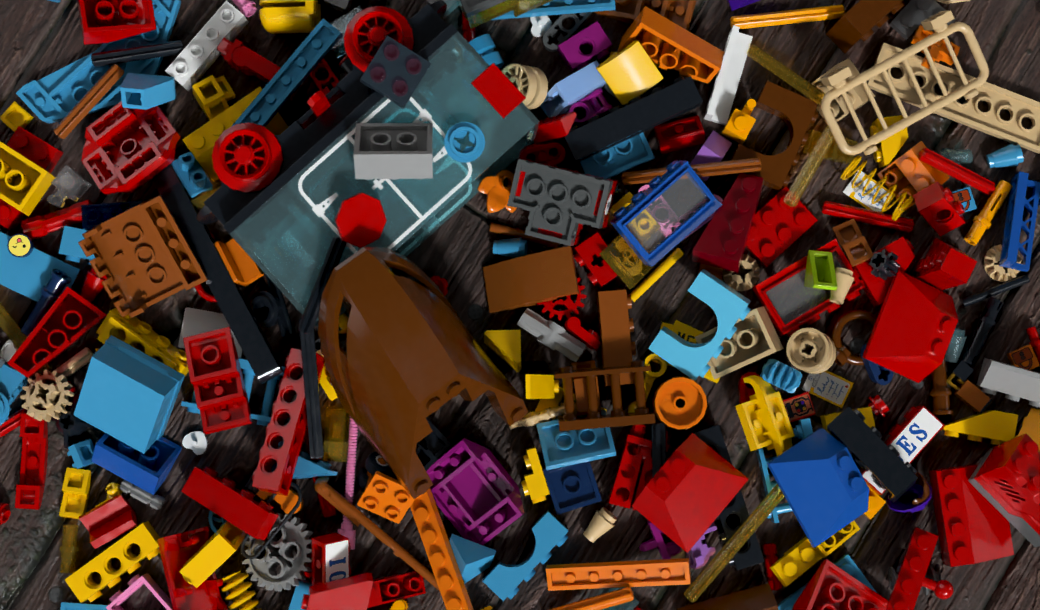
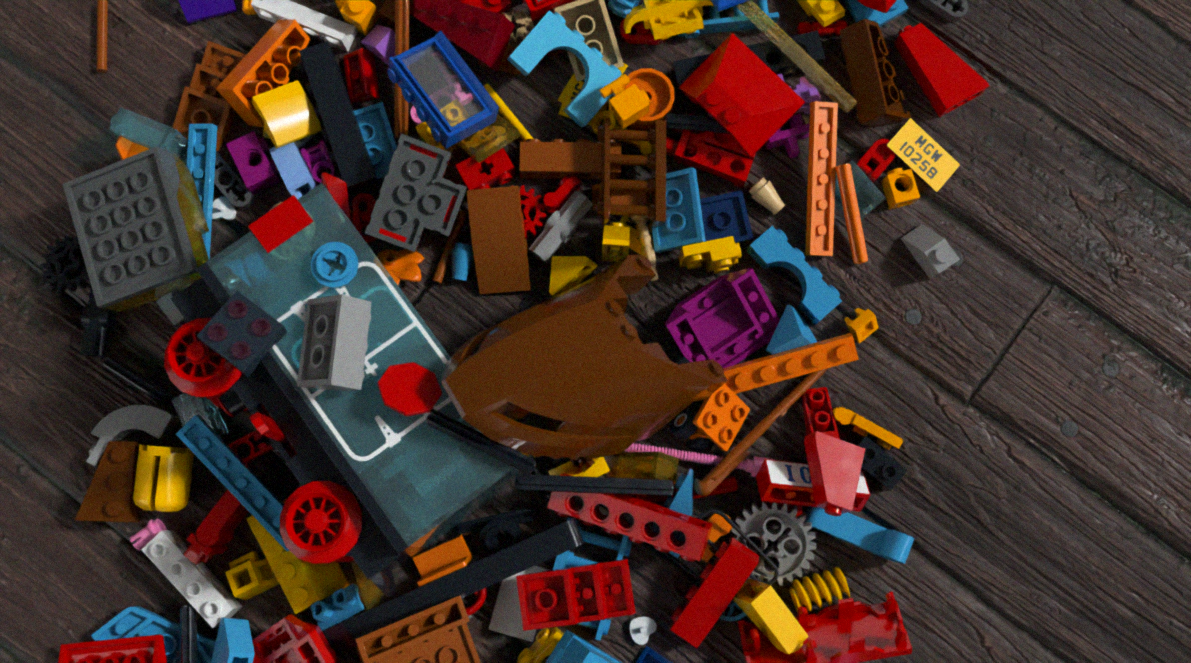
camera: 85 degrees left, 5 degrees down
(666, 386) = (626, 104): none -> light orange brick

